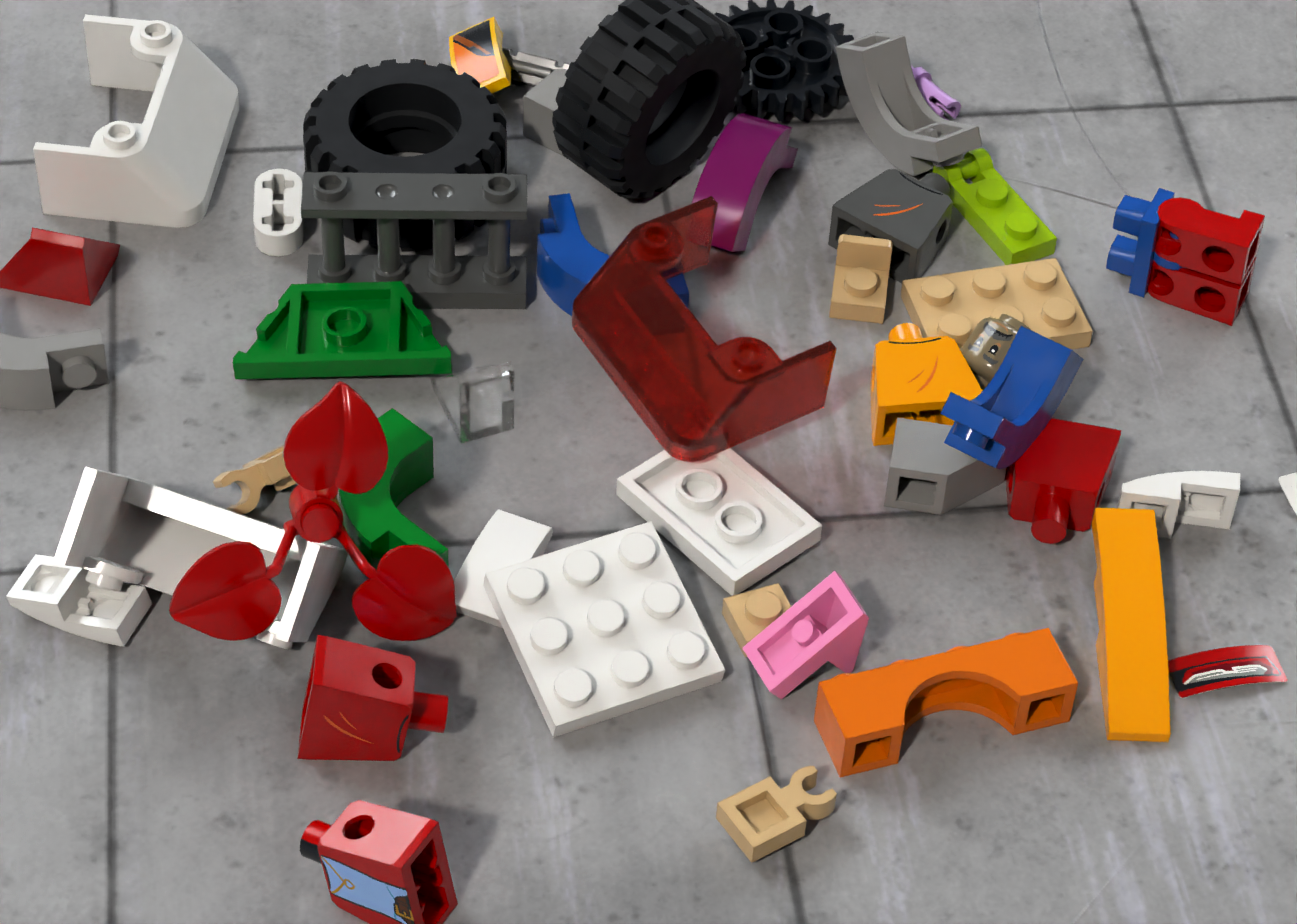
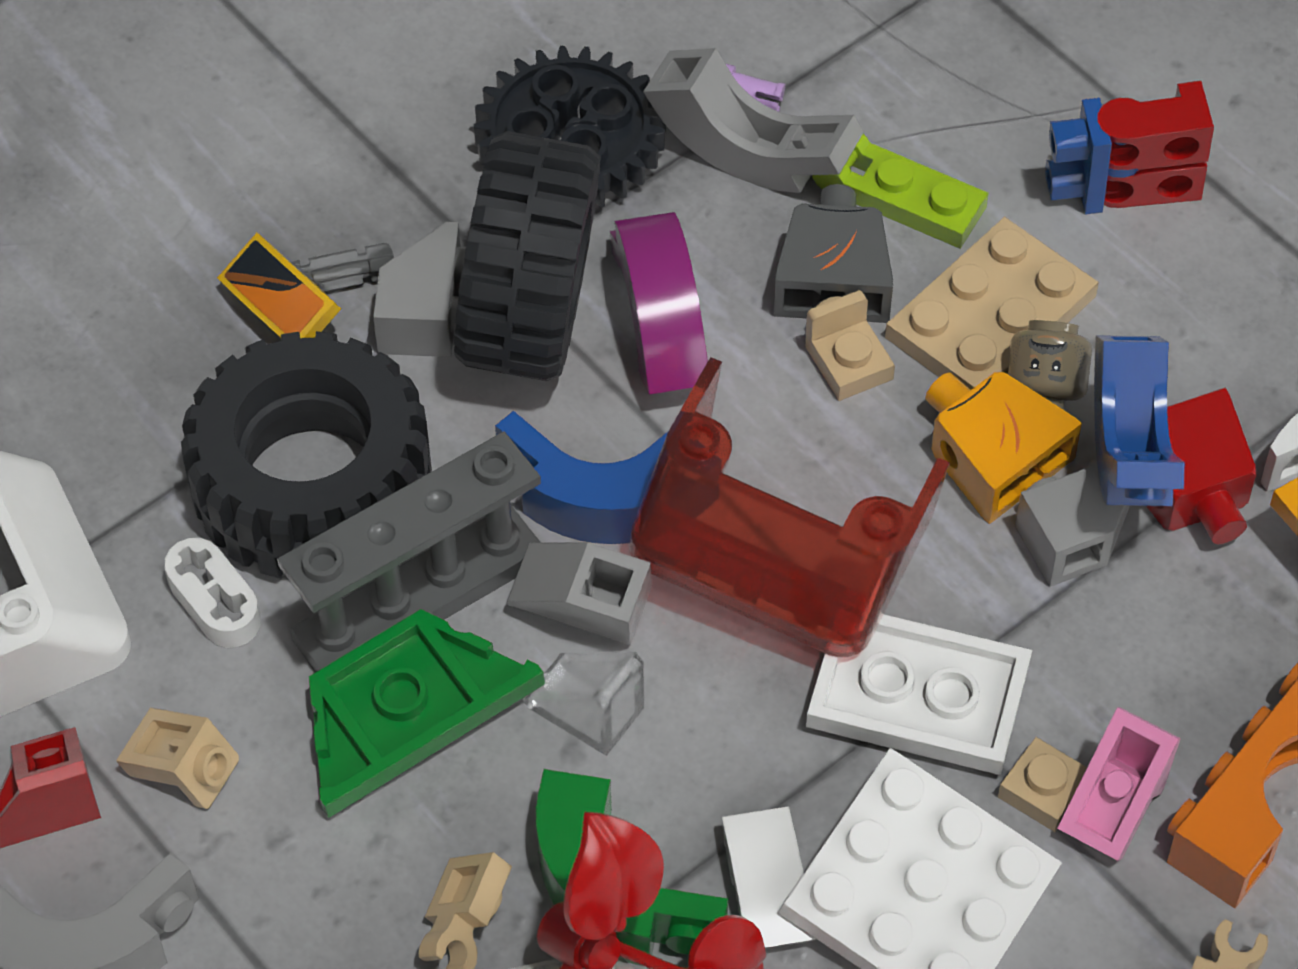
camera: 30 degrees left, 10 degrees up
(171, 290) = (181, 753): none -> tan bracket
(529, 328) = (583, 587): none -> light grey slope

